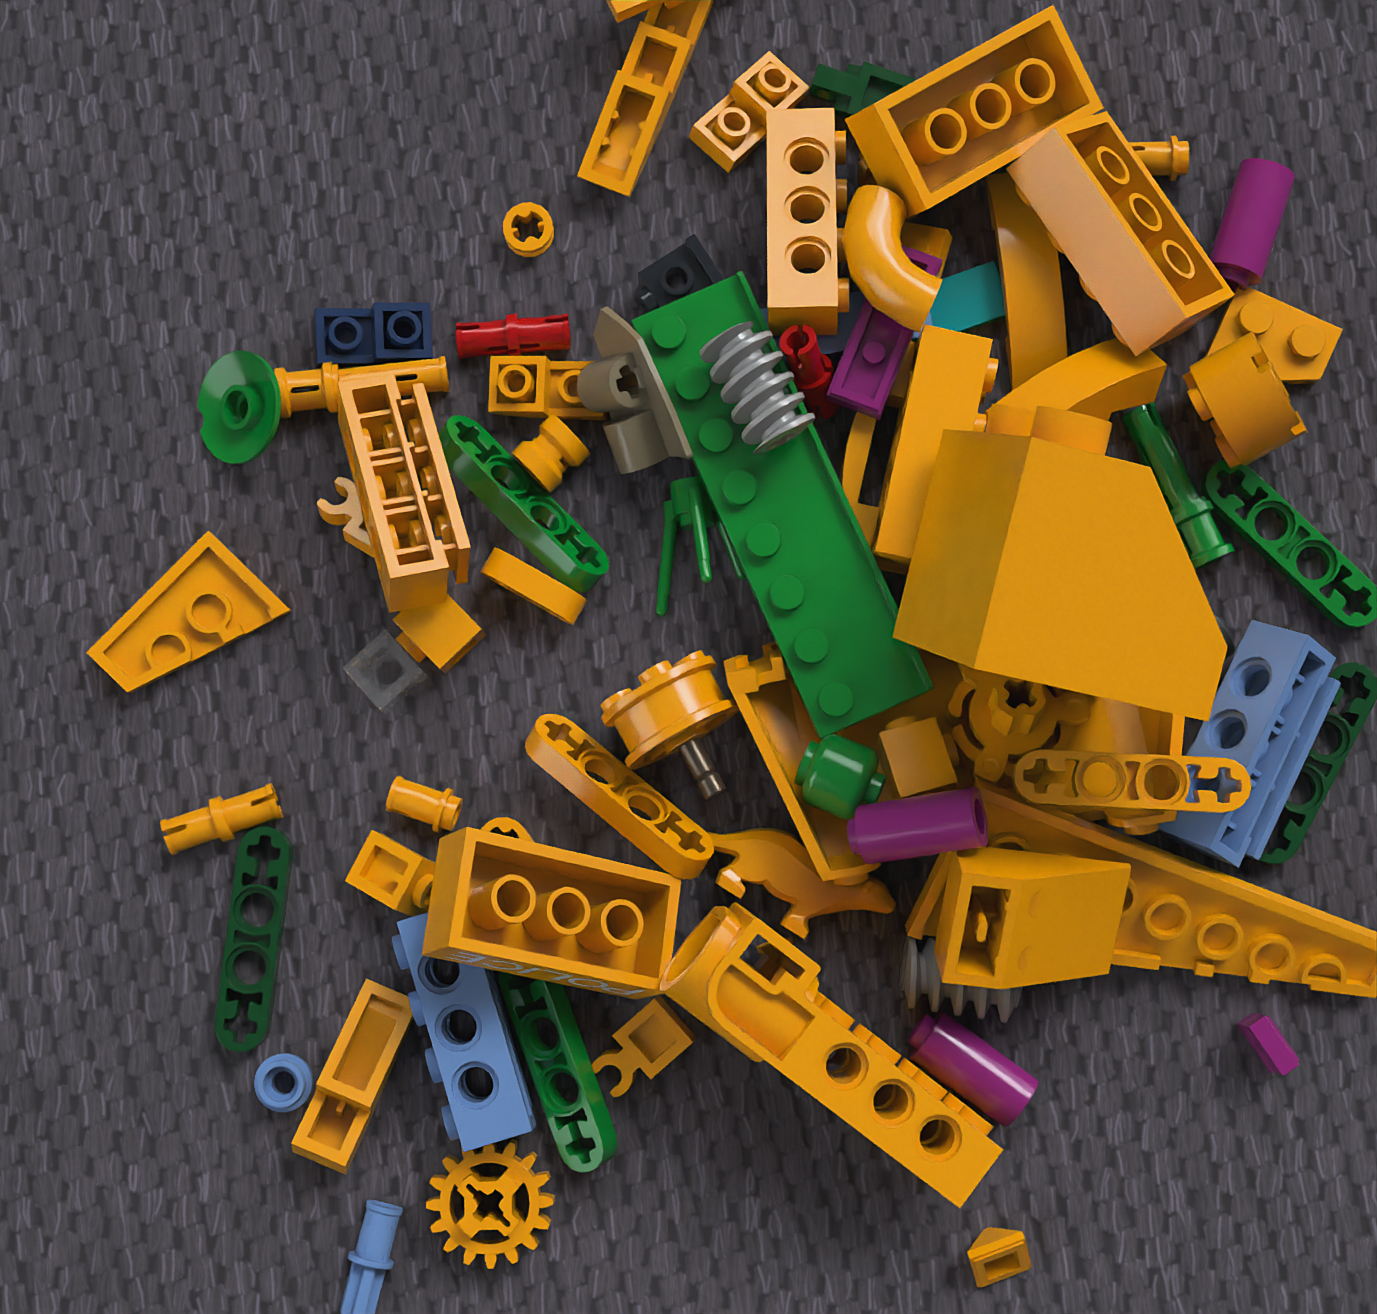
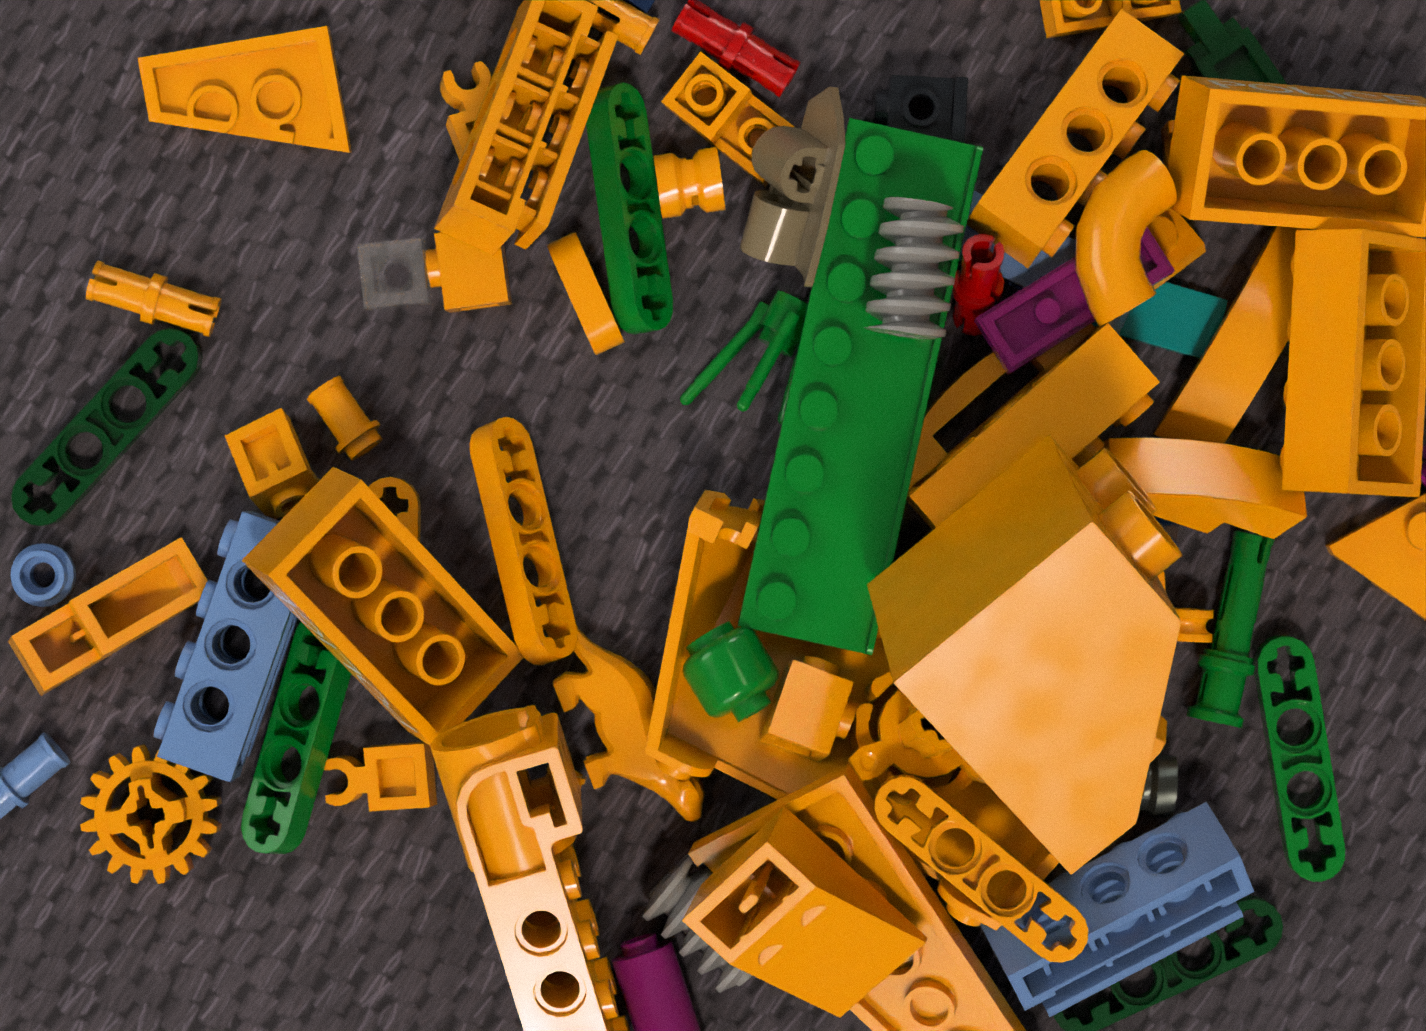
camera: 35 degrees right, 5 degrees up
(671, 715) = (623, 506): light orange wheel -> none
(919, 826) = (764, 770): magenta brick -> none
(1245, 399) = (1351, 601): light orange brick -> none

